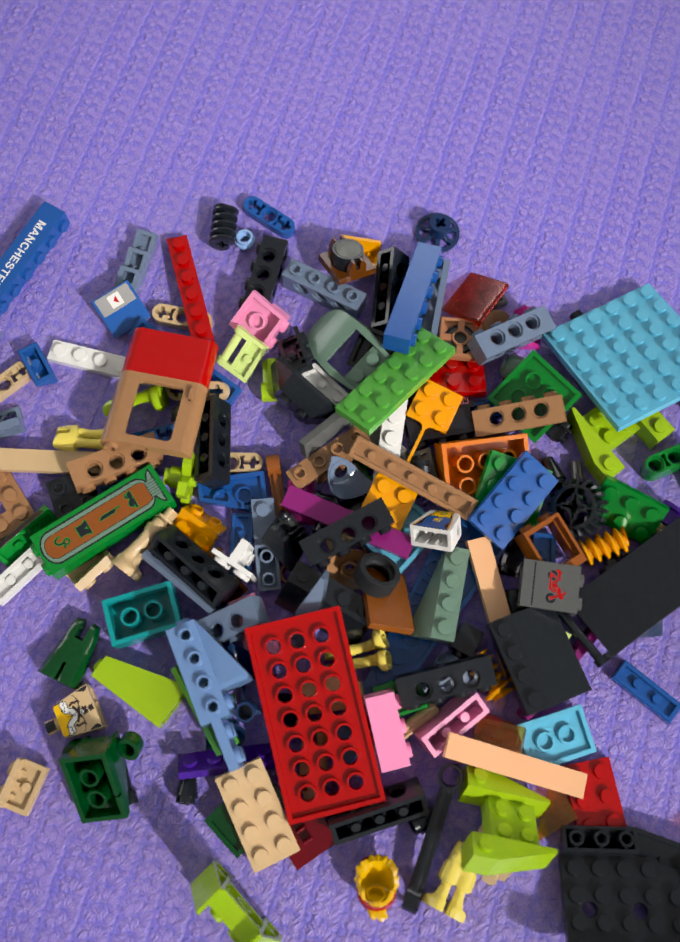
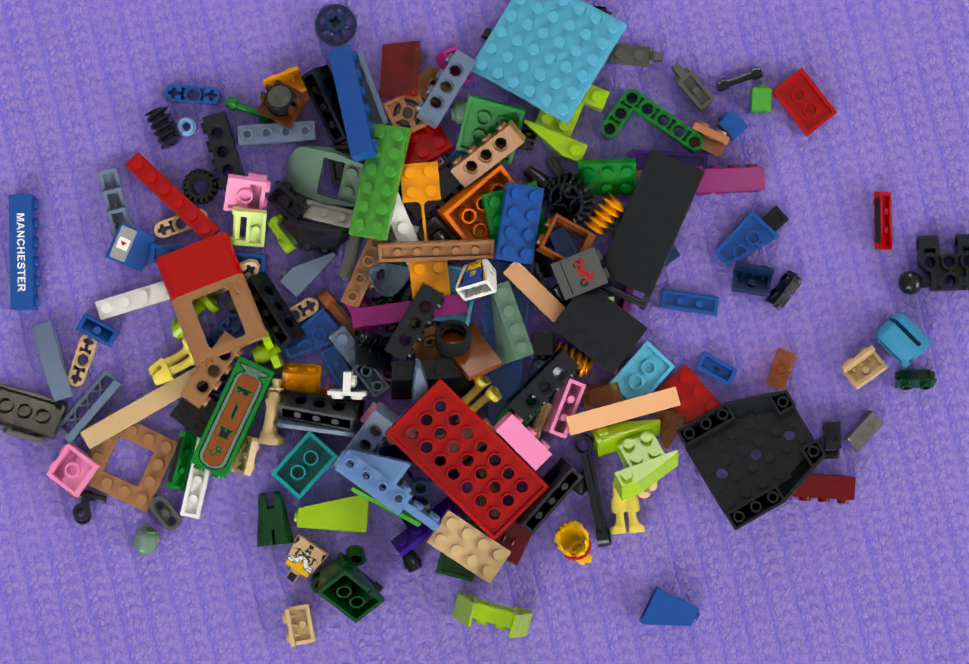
camera: 30 degrees left, 15 degrees up
(217, 285) = (189, 182): none -> black tyre
(267, 429) = (303, 275): none -> sand blue slope
(300, 244) = (232, 103): none -> green bar
(649, 793) = (724, 375): none -> blue piece

